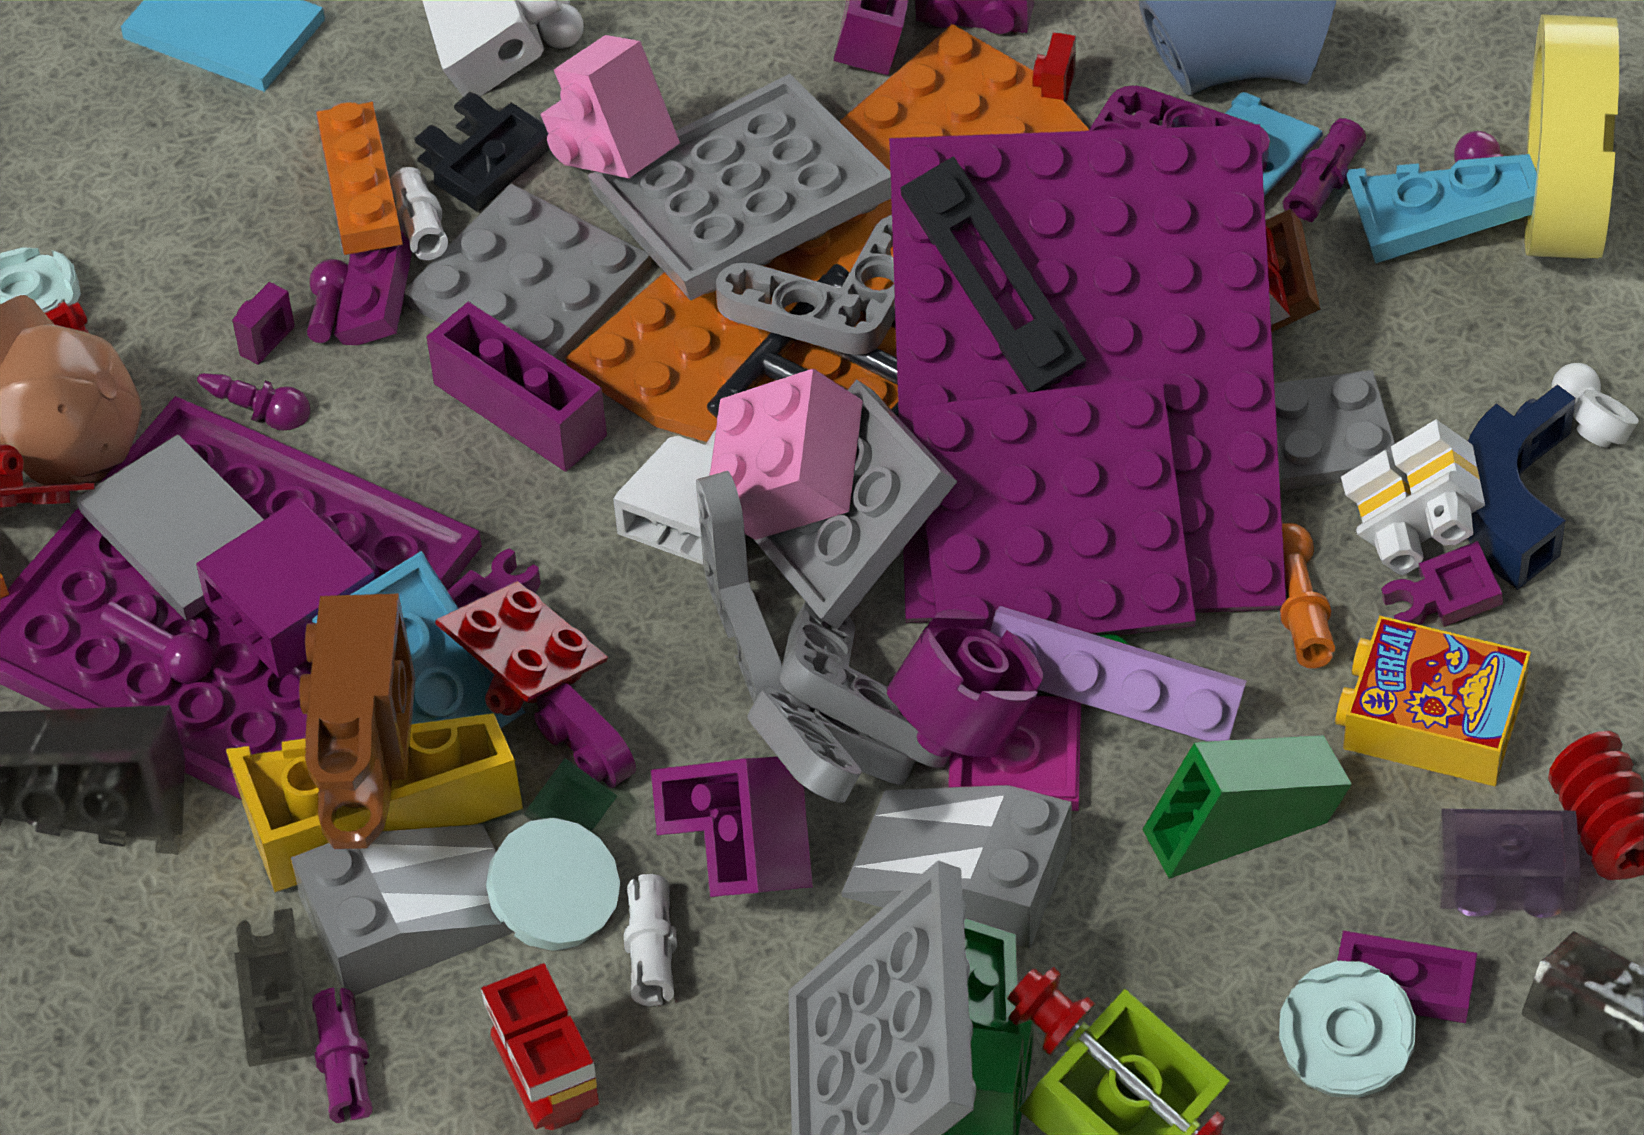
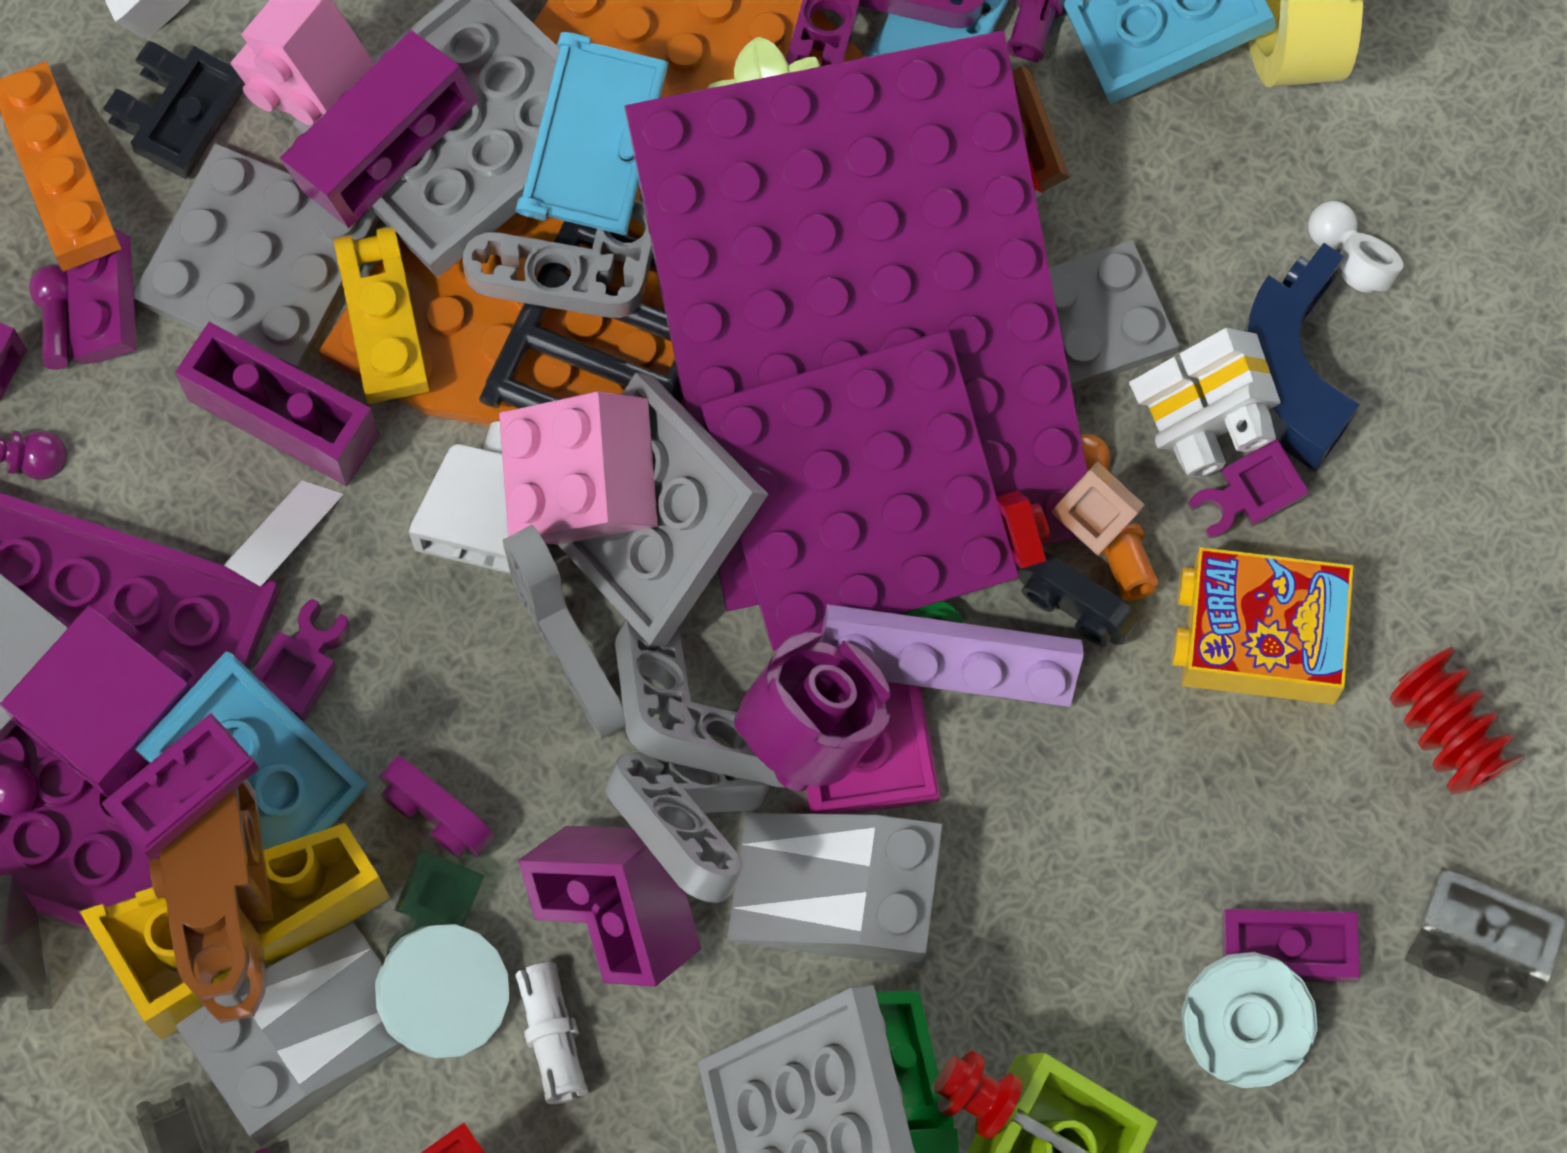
camera: 15 degrees left, 20 degrees up
(345, 603) = (180, 786): none -> magenta plate
(418, 213) = (127, 199): white pin -> none
(495, 495) = (282, 531): none -> white sticker
(521, 645) = (351, 725): red hinge -> none
(631, 329) = (381, 317): none -> yellow plate
(664, 171) = (379, 128): none -> magenta brick
(846, 201) = (584, 130): none -> medium azure door
(1040, 349) = (699, 174): black container -> none
(1207, 570) = (1024, 527): none -> red plate
(1242, 798) = (1104, 777): green slope -> none
(1261, 656) = (1098, 612): none -> black plate
(1283, 565) = (1097, 508): none -> nougat tile
(1508, 861) = (1368, 801): clear purple brick -> none

